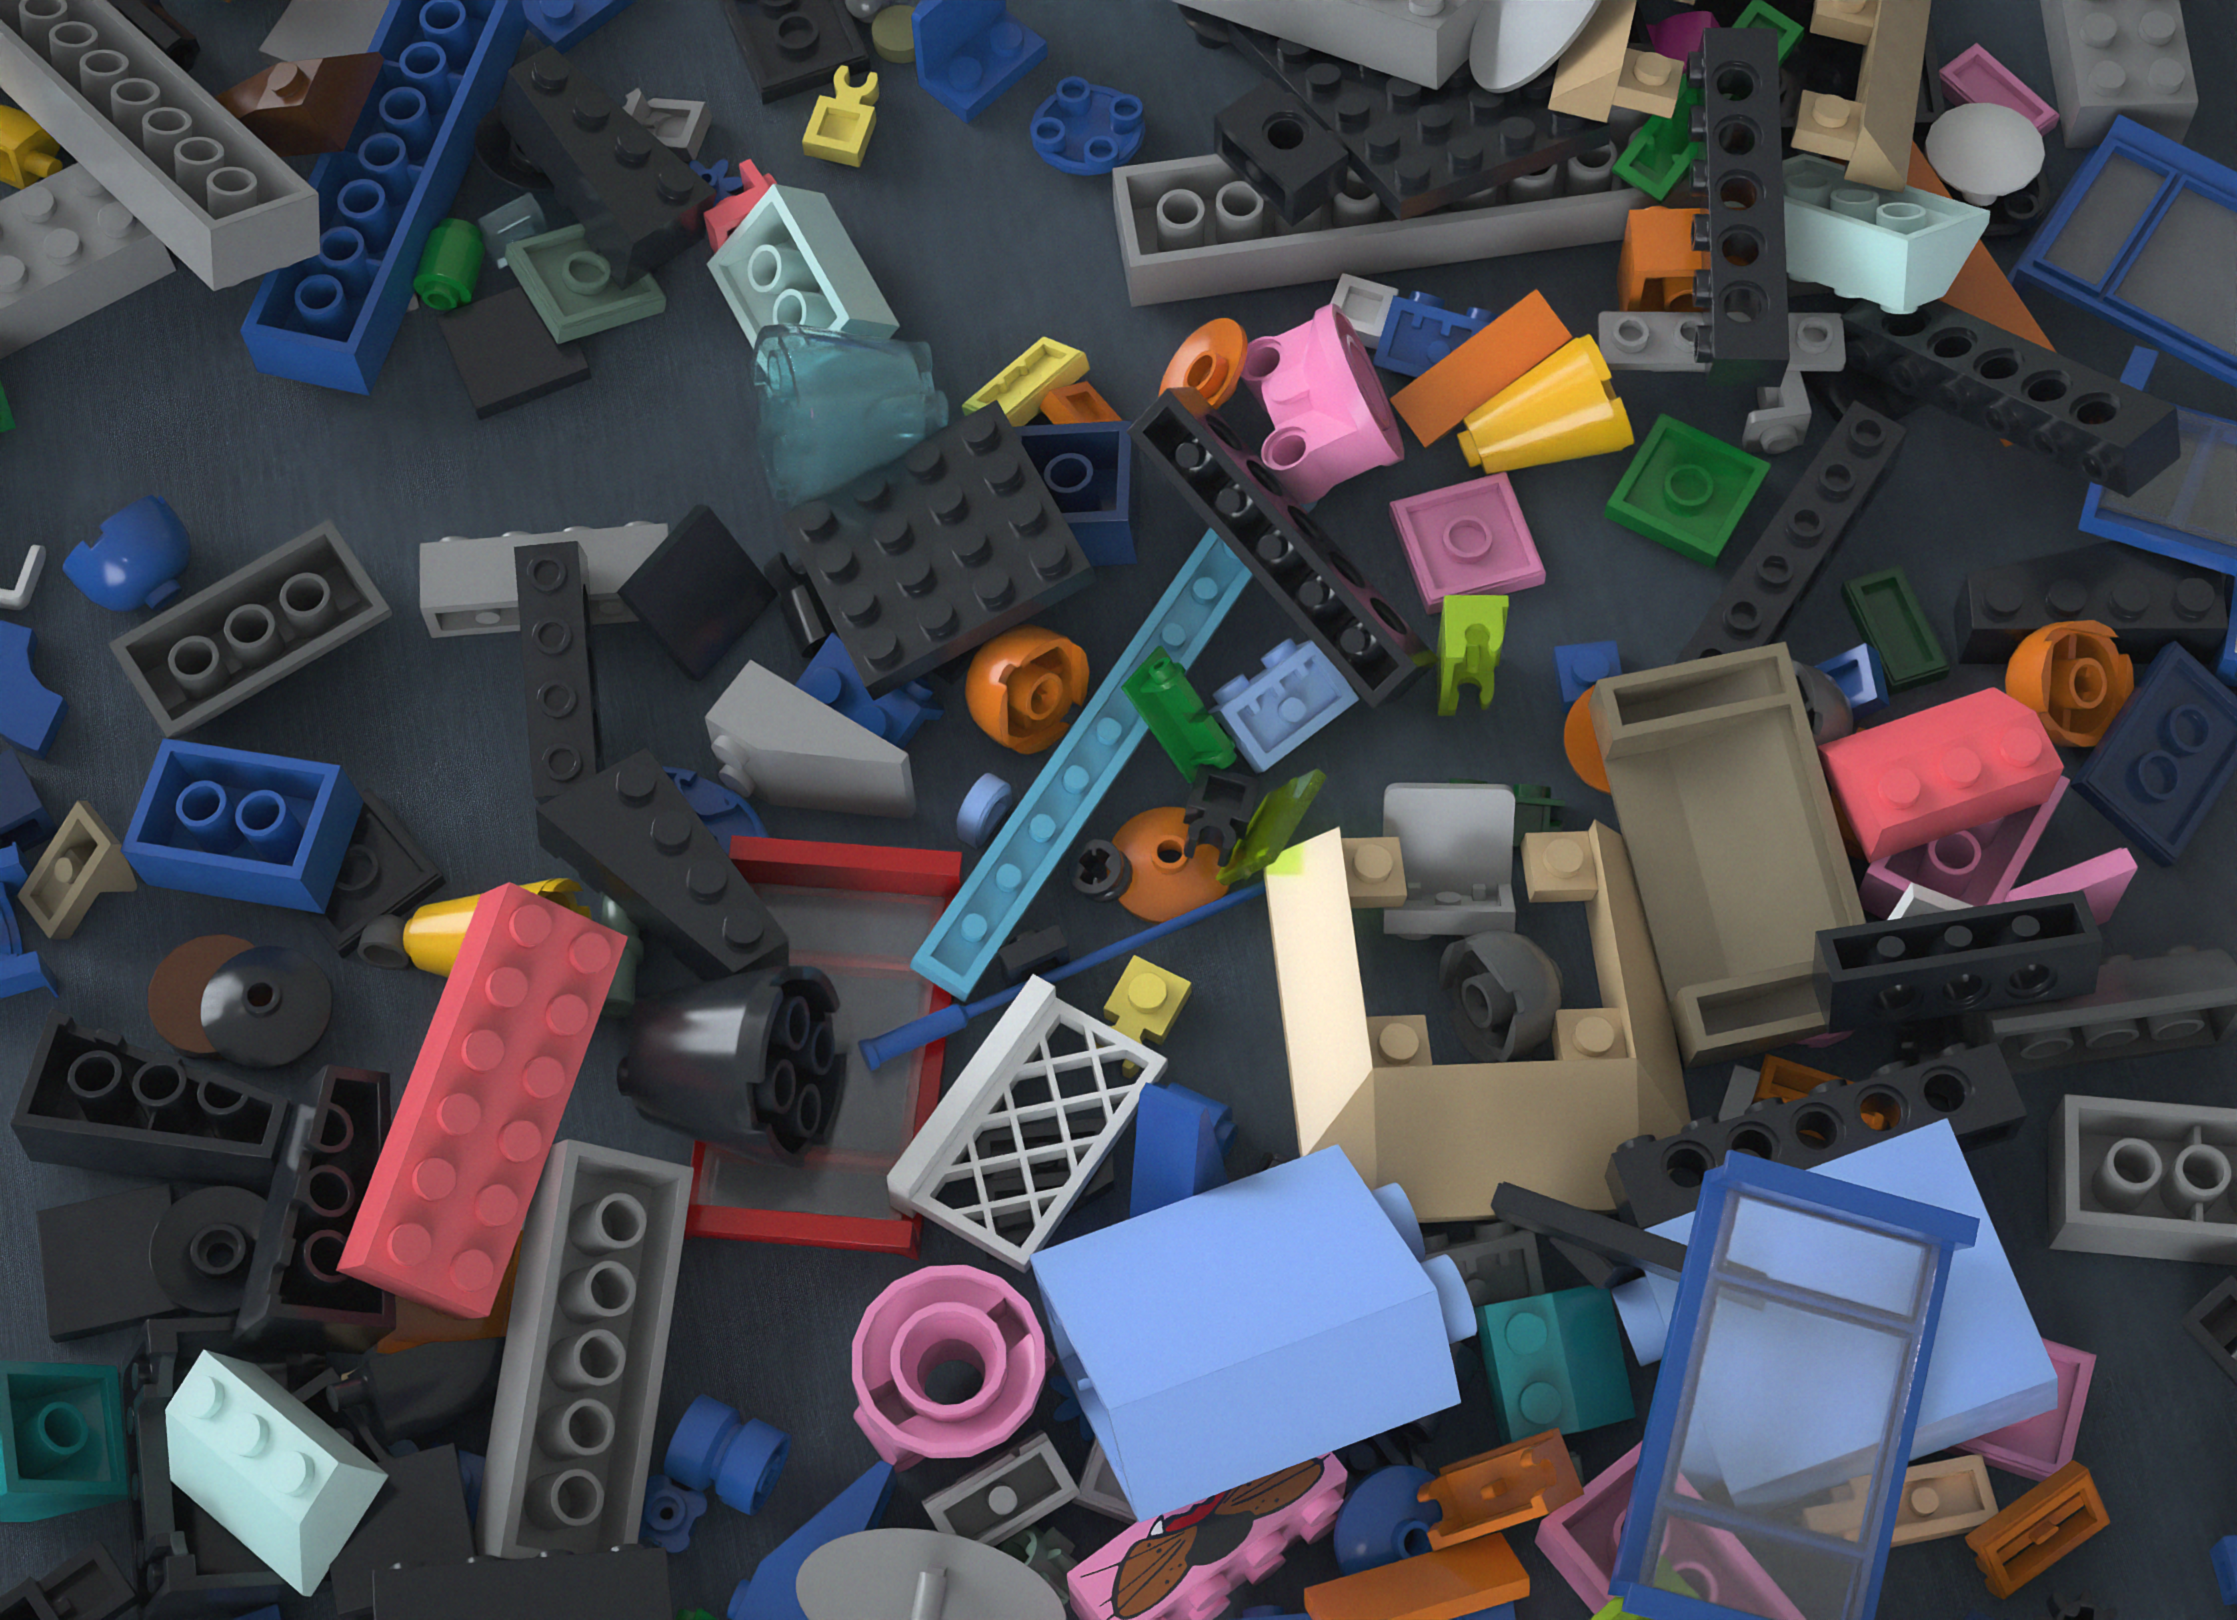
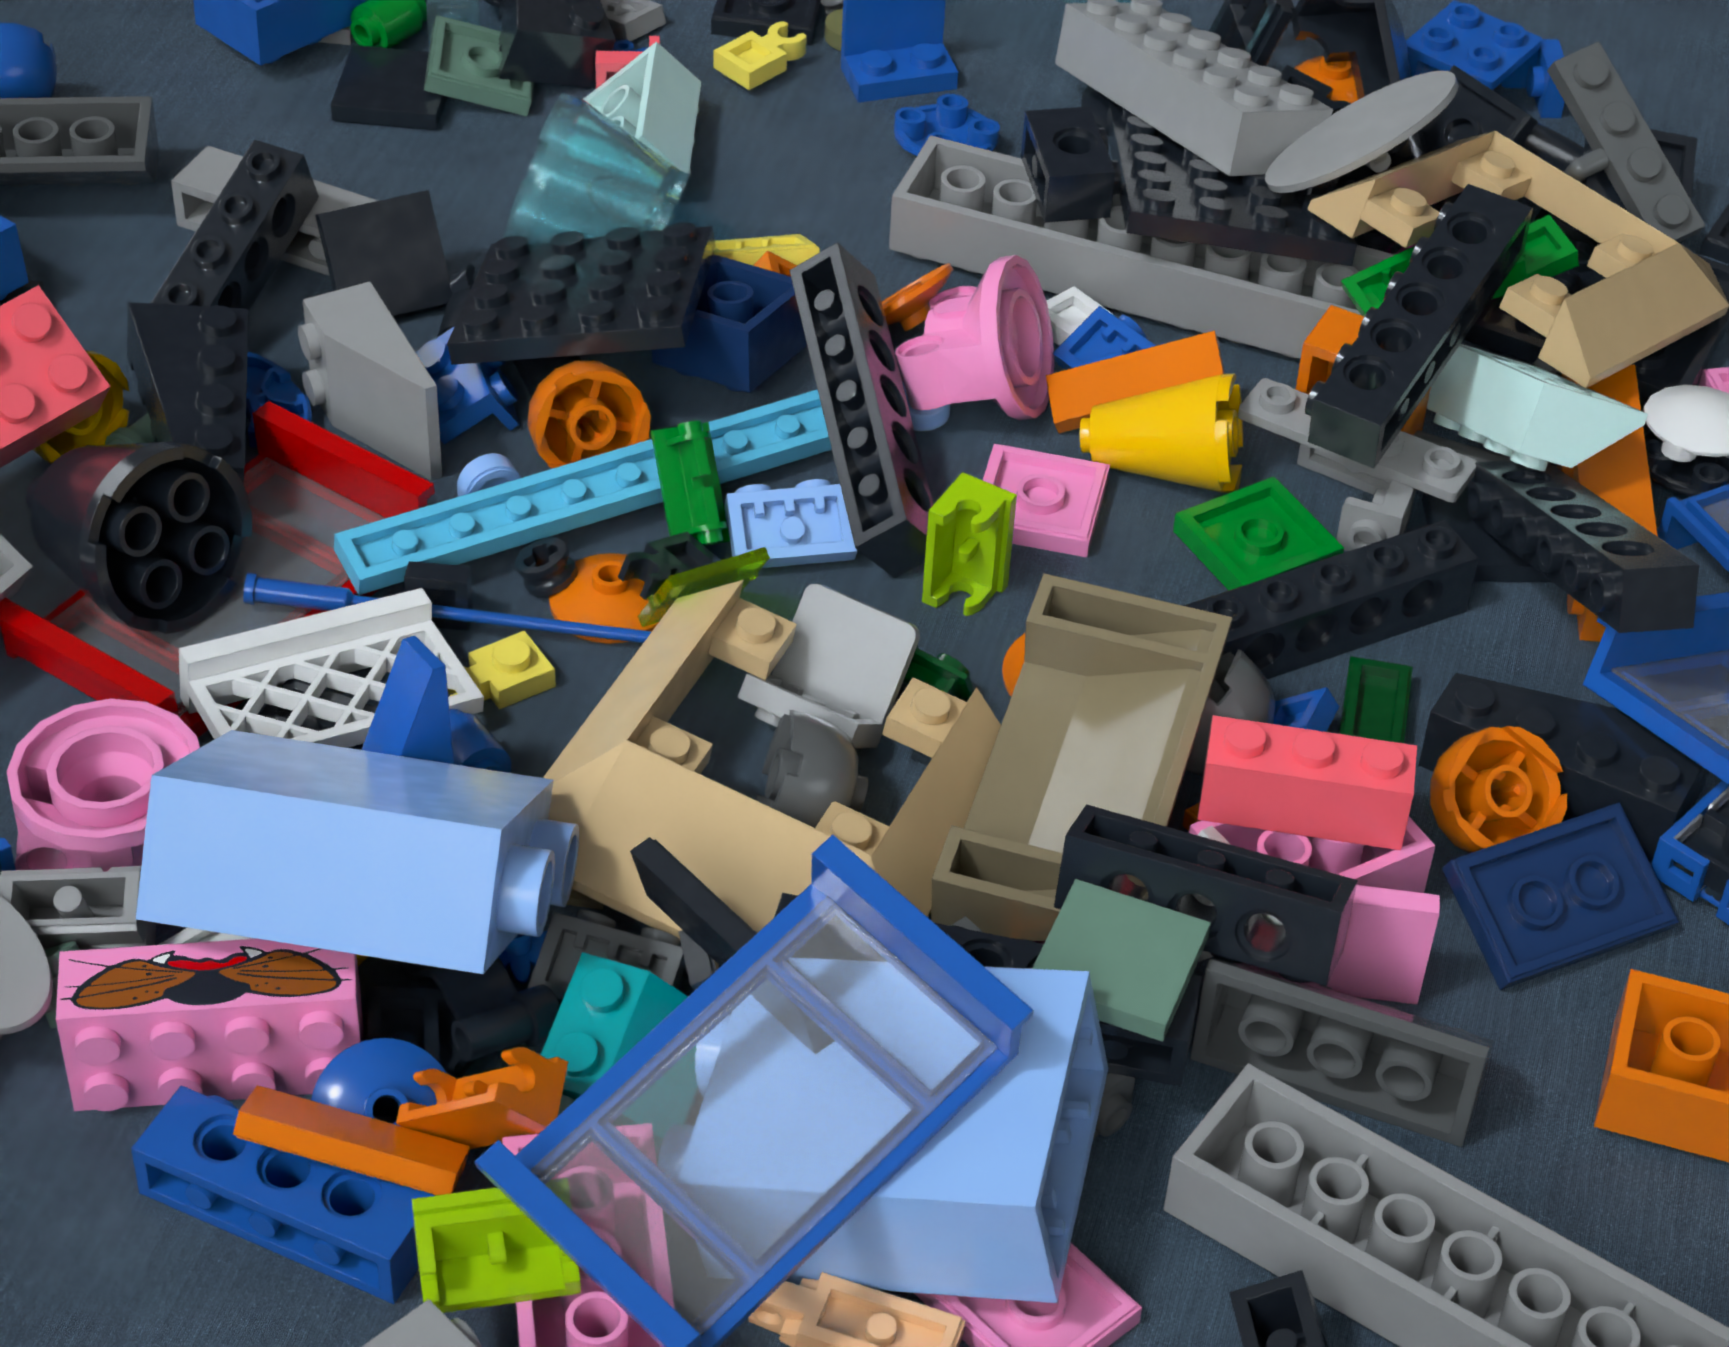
camera: 25 degrees right, 20 degrees down
(1931, 1066) = (1134, 954): none -> sand green tile

